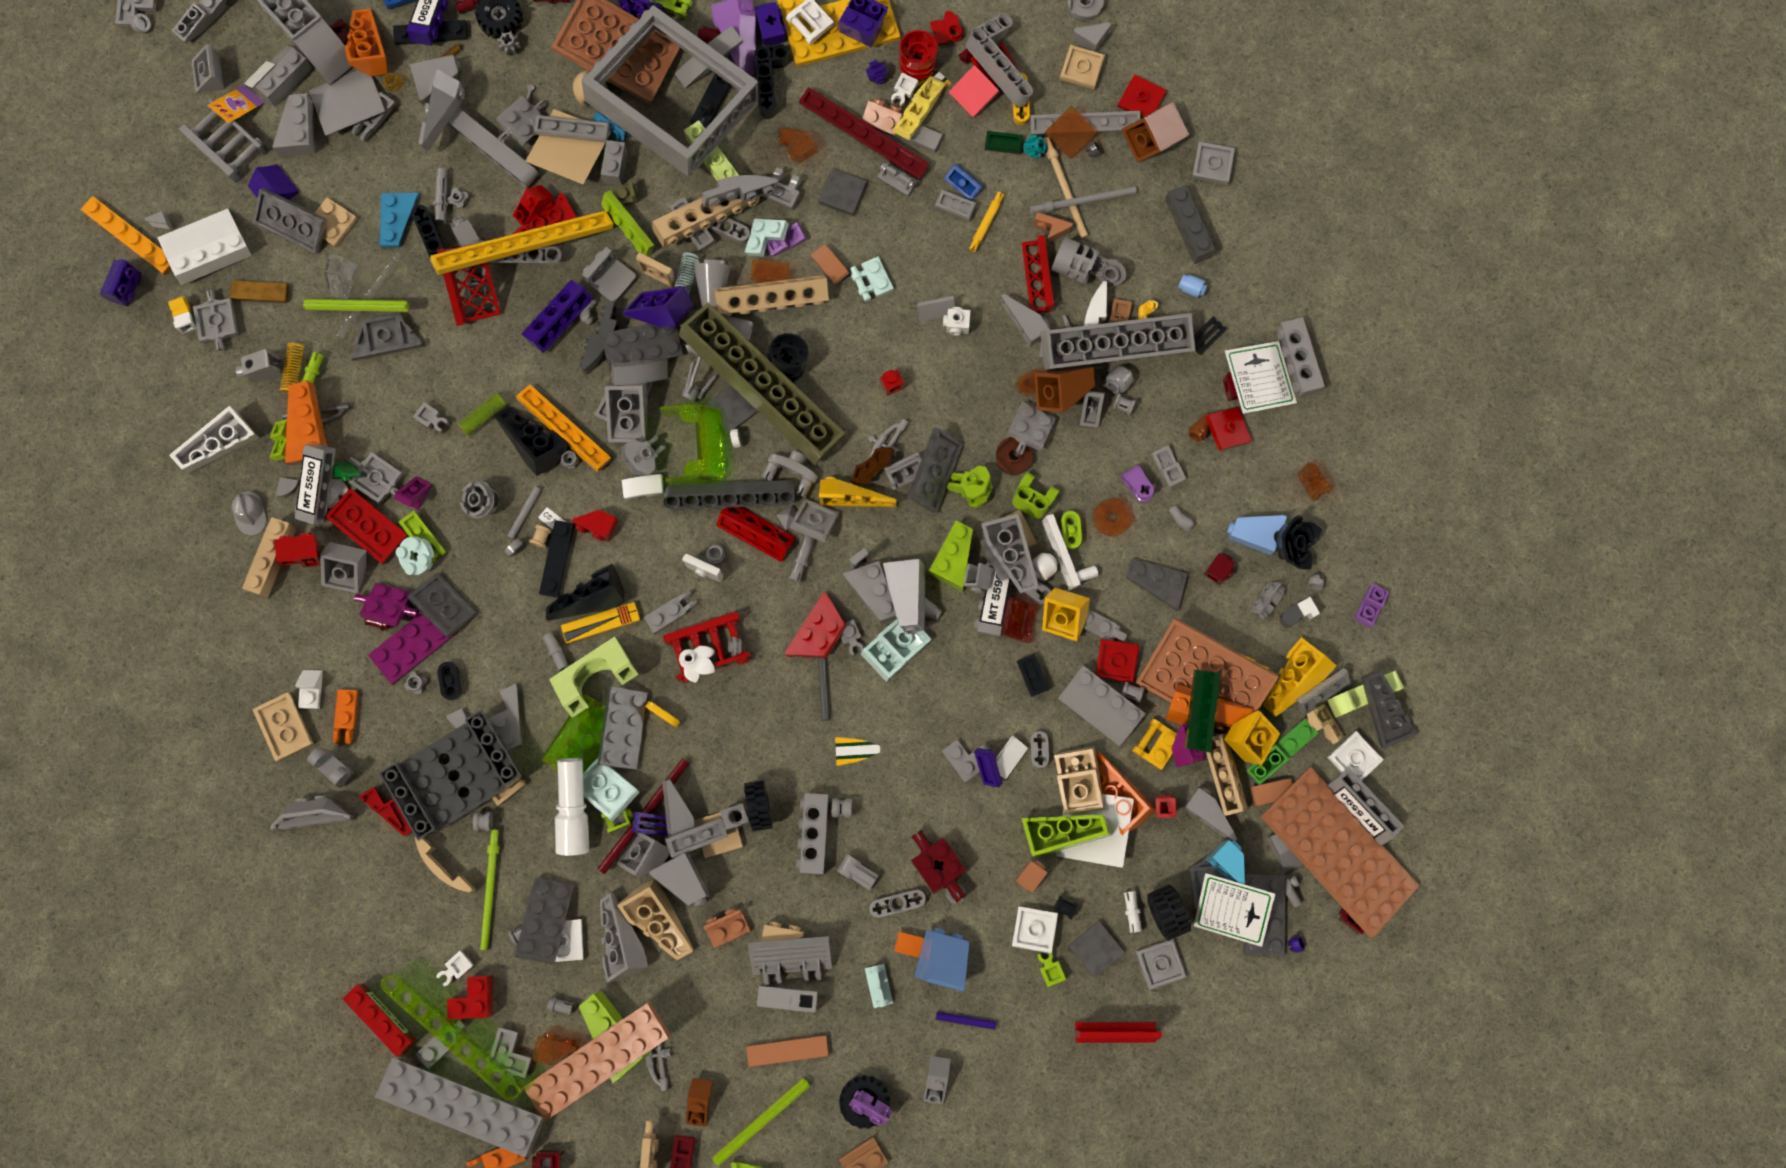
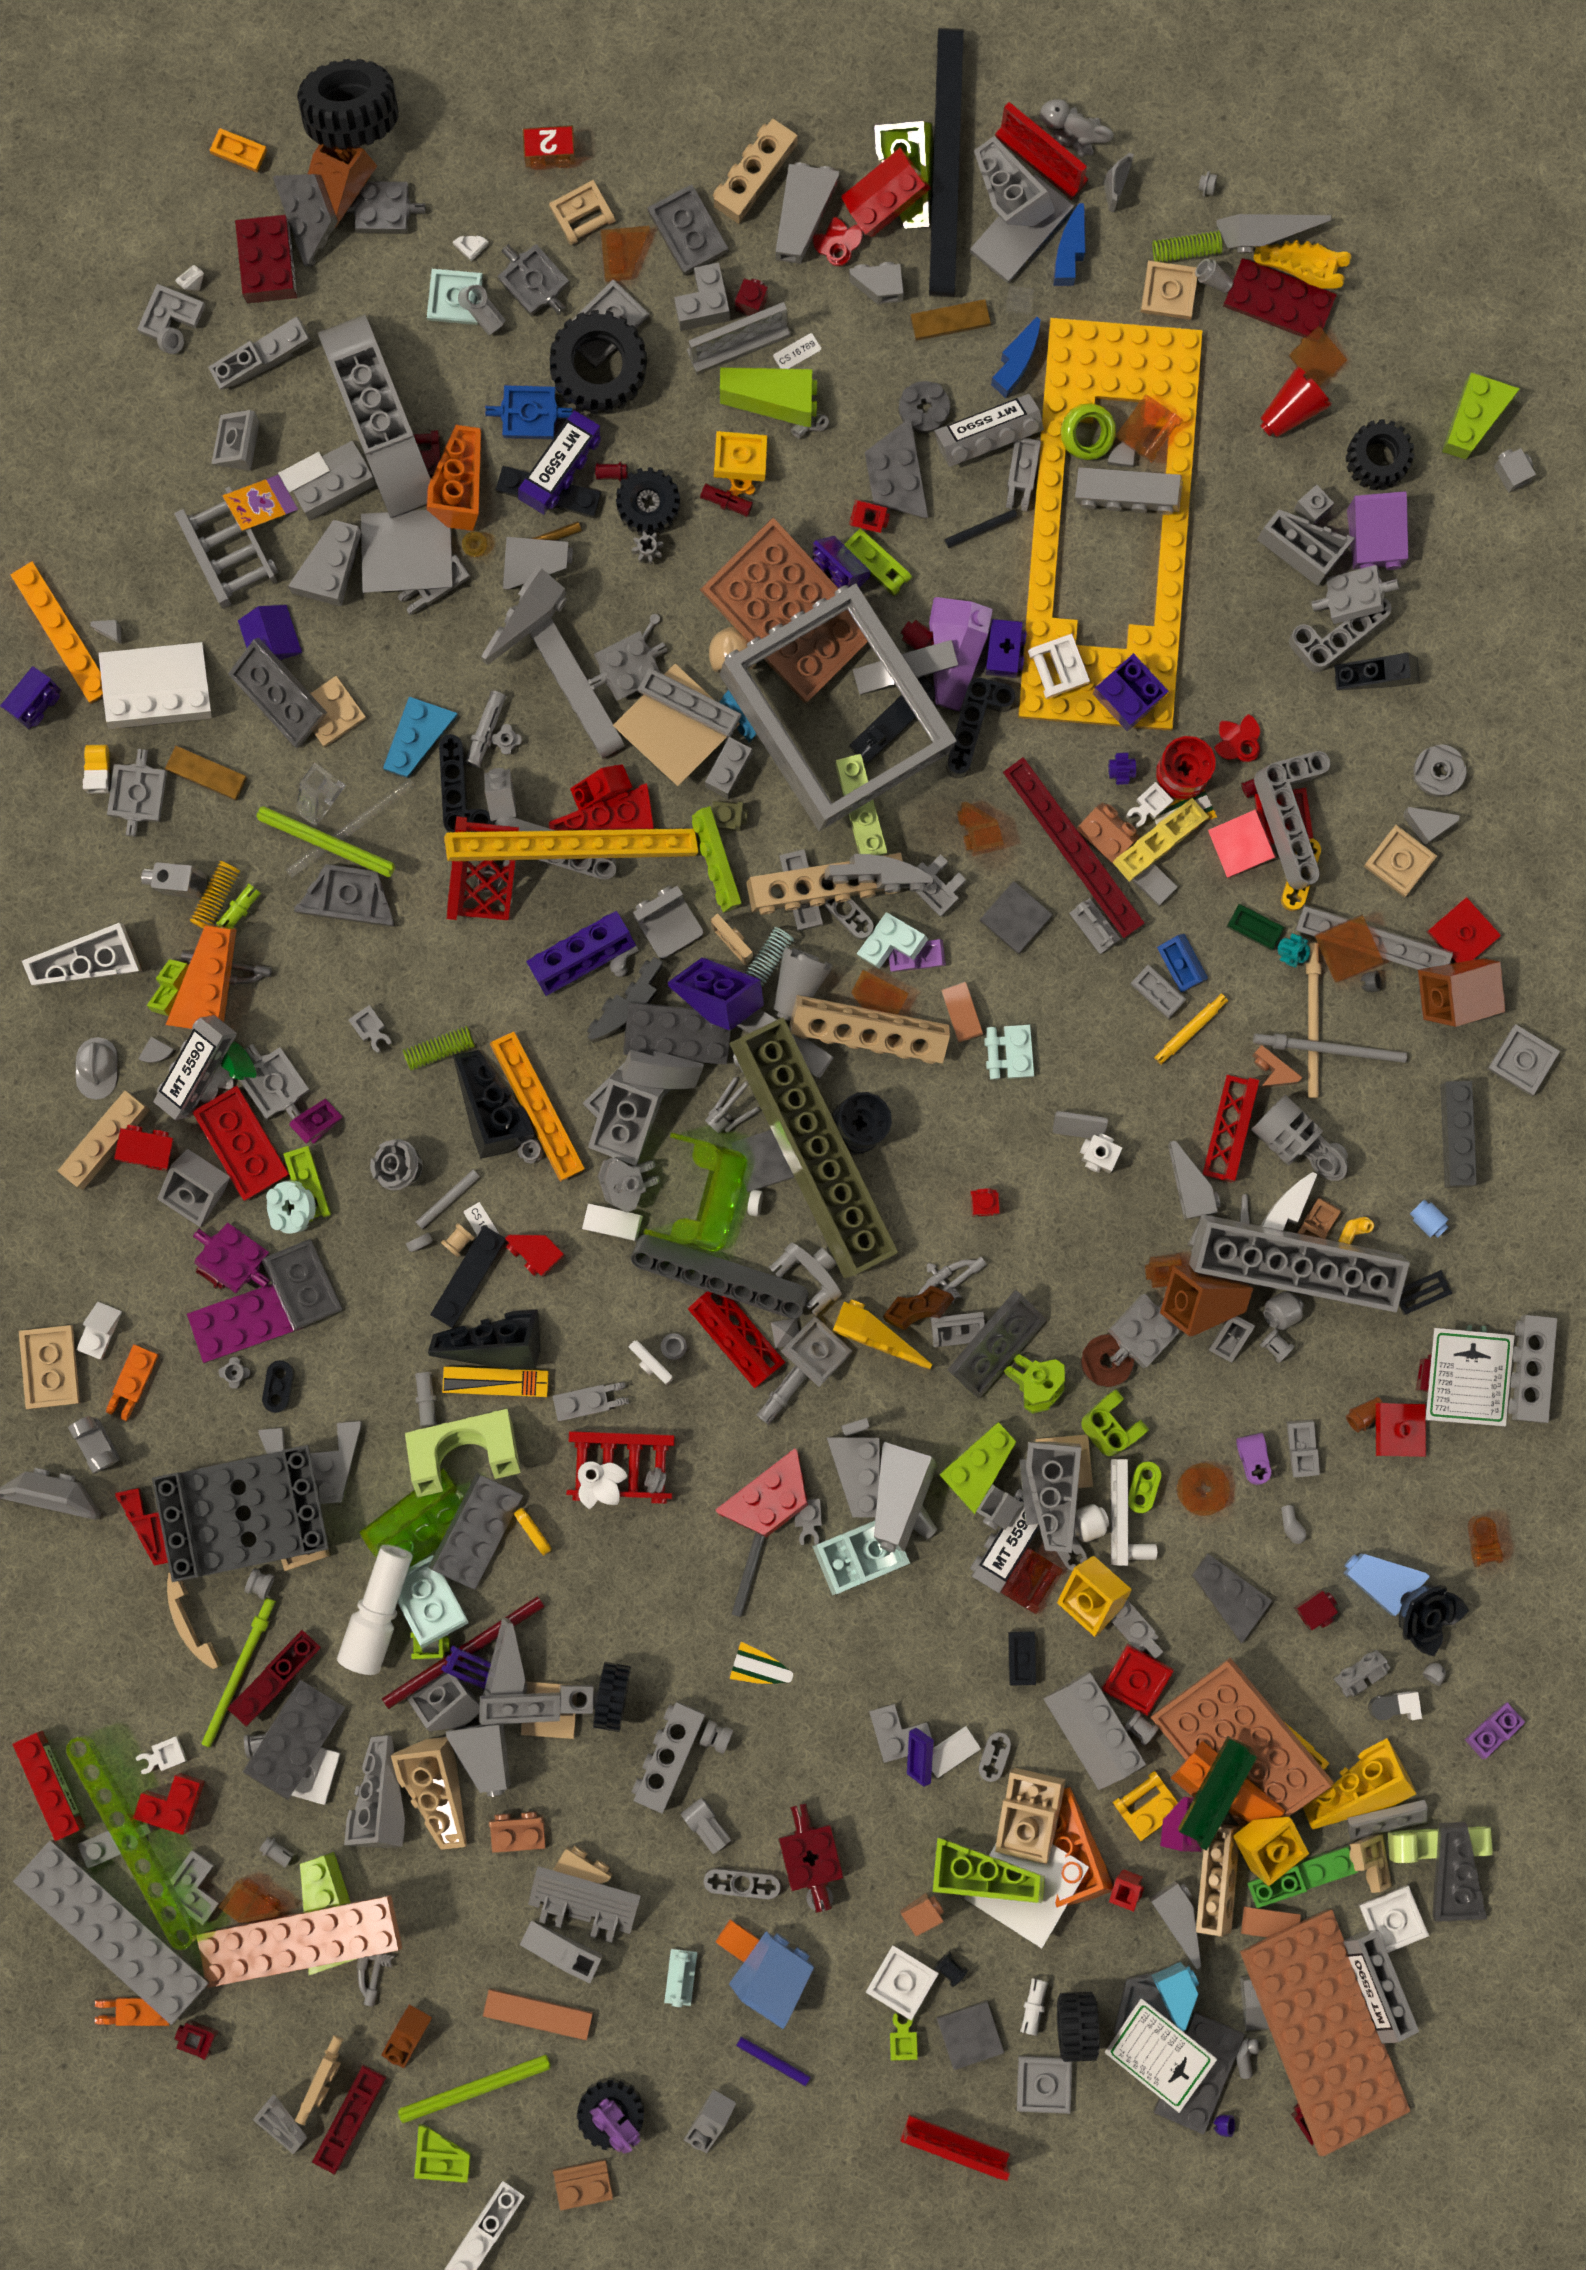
camera: 20 degrees right, 5 degrees up
(516, 883) = (274, 1678): none -> dark red slope

